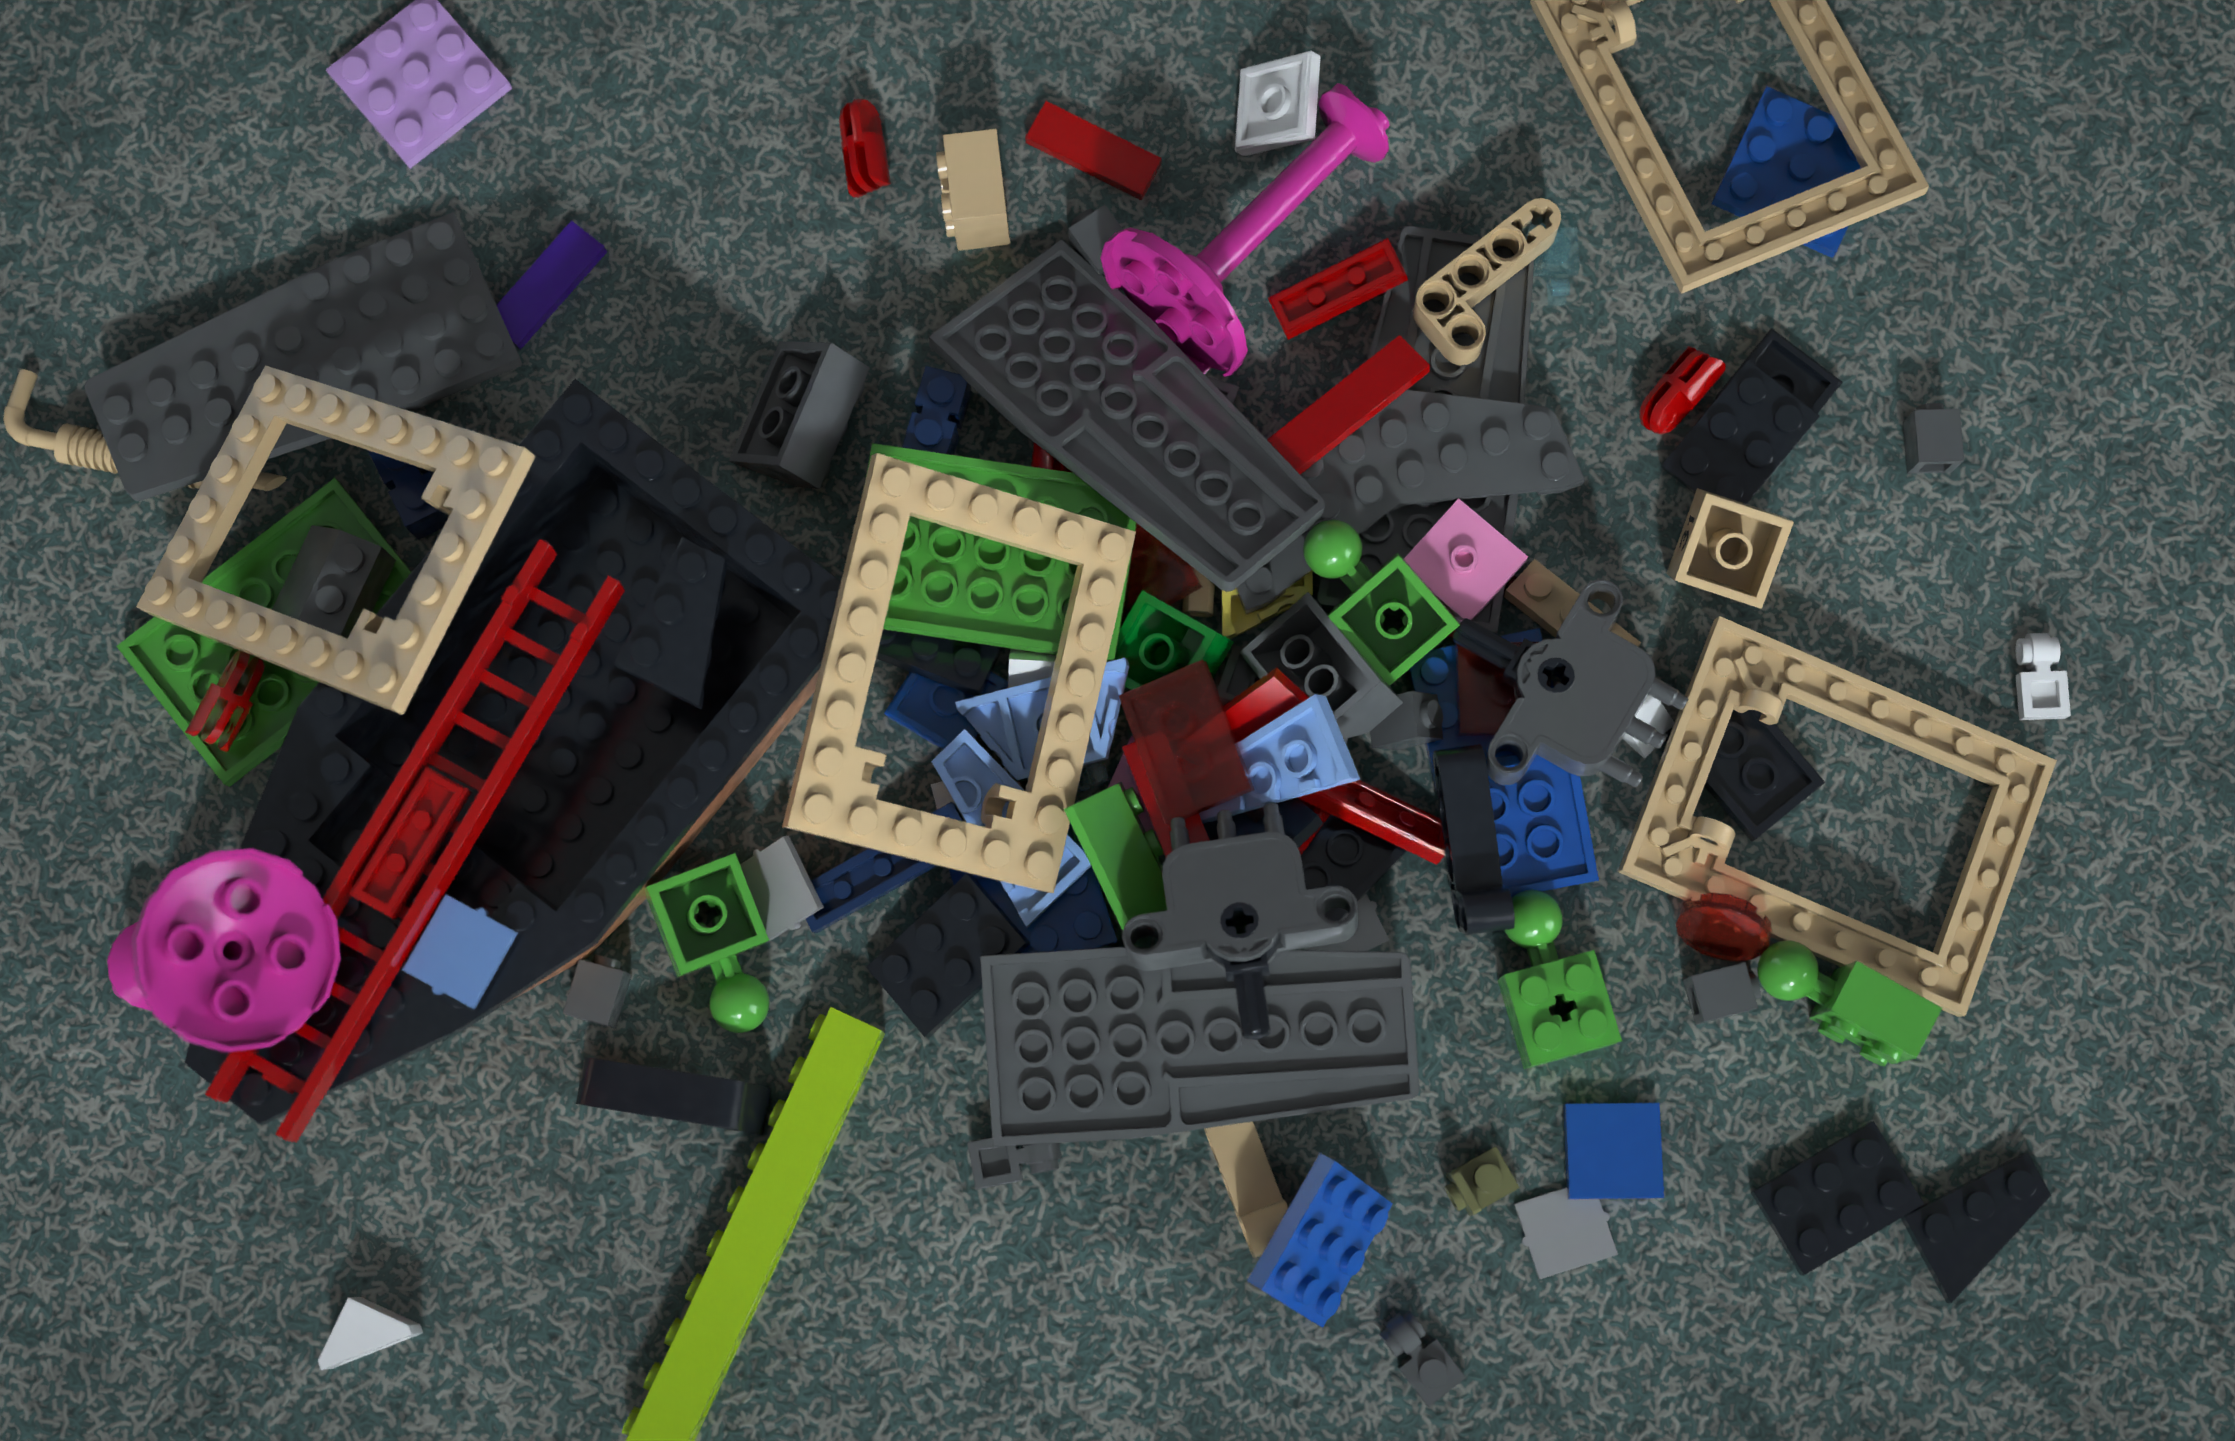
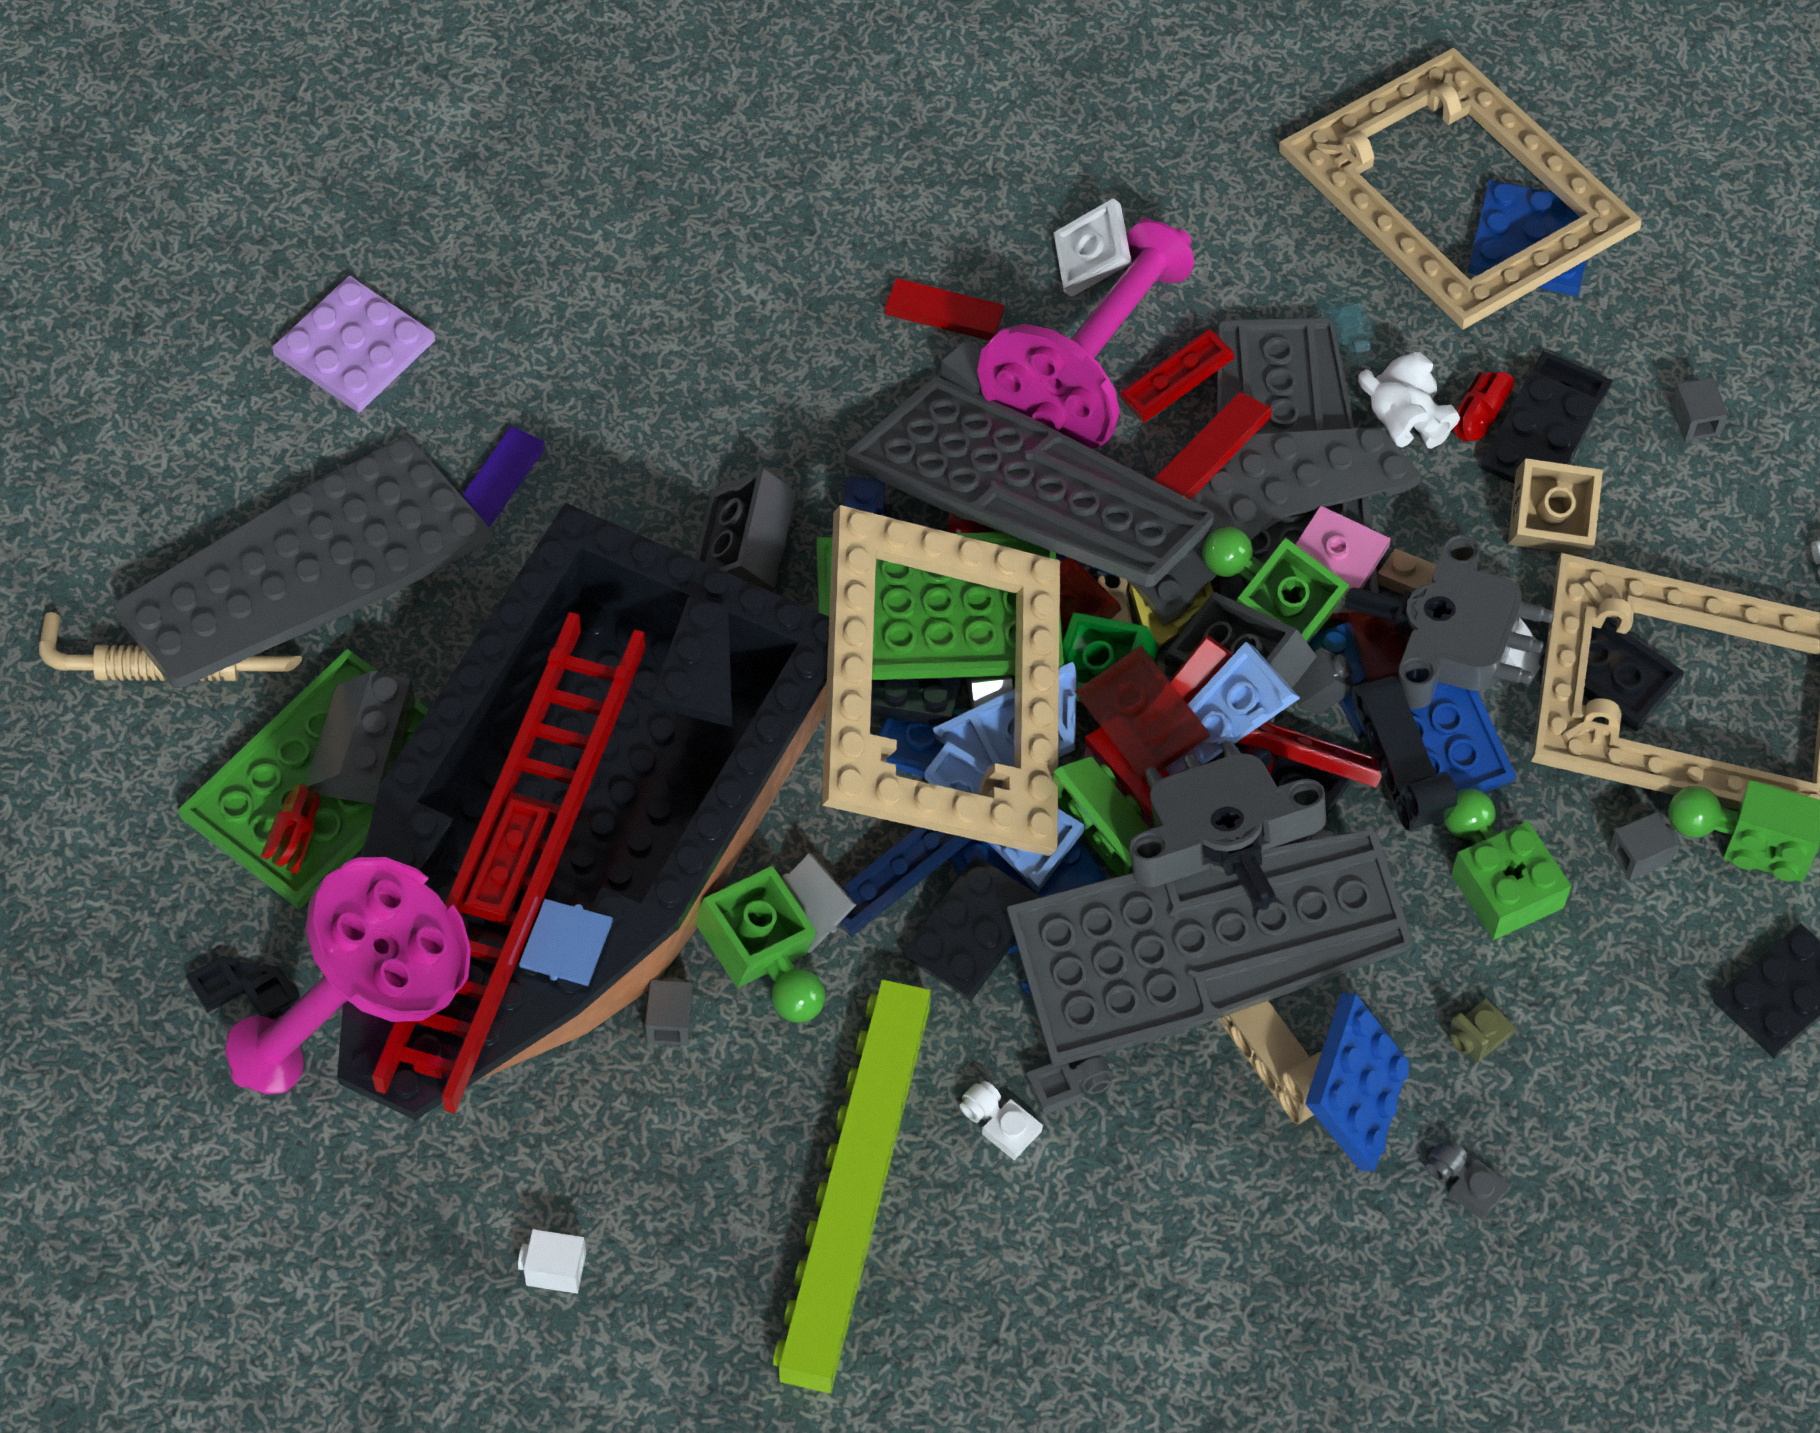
camera: 15 degrees left, 20 degrees down
(136, 858) = (229, 978): none -> black tile
(364, 1330) = (520, 1323): white slope -> none
(382, 657) = (502, 570): tan plate -> none
(406, 490) = (427, 651): dark blue piece -> none
(415, 1266) = (553, 1261): none -> white brick
(674, 1095) = (757, 1074): black beam -> none
(863, 148) = (750, 335): red arm -> none
(938, 1197) = (1007, 1127): none -> white plate
(973, 190) = (856, 344): tan brick -> none
(1492, 273) = (1275, 359): tan beam -> none
(1564, 1232) = (1563, 1057): light grey piece -> none
(1589, 377) = (1404, 400): none -> white animal
(1613, 1151) = (1587, 987): blue tile -> none
(1724, 927) = (1631, 787): clear red tile -> none

